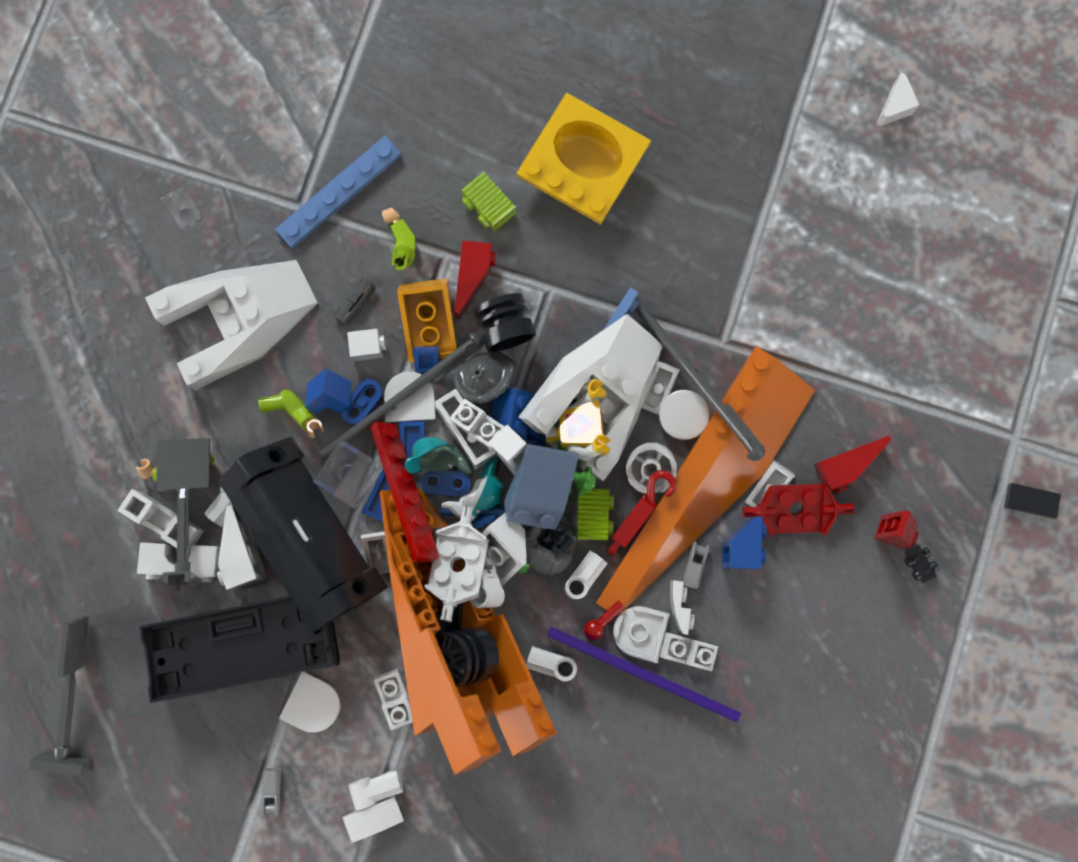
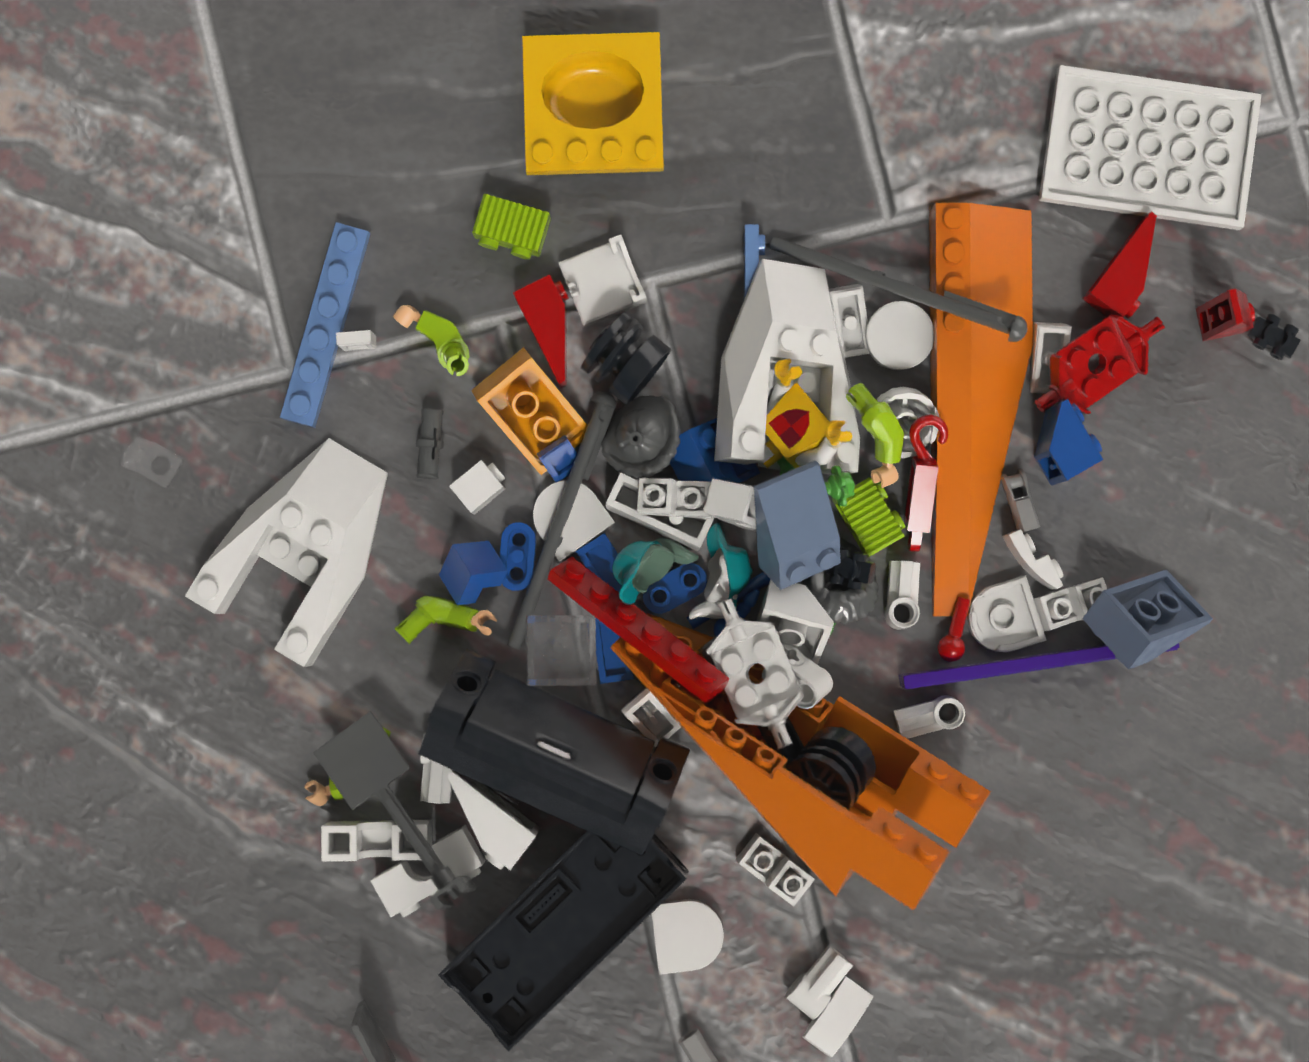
camera: 30 degrees left, 5 degrees up
(350, 211) = (356, 340): none -> white tile
(522, 269) = (603, 282): none -> white piece
(636, 464) = (886, 429): none -> lime arm
(727, 687) = (1145, 617): none -> sand blue slope
(914, 397) = (1150, 147): none -> white plate

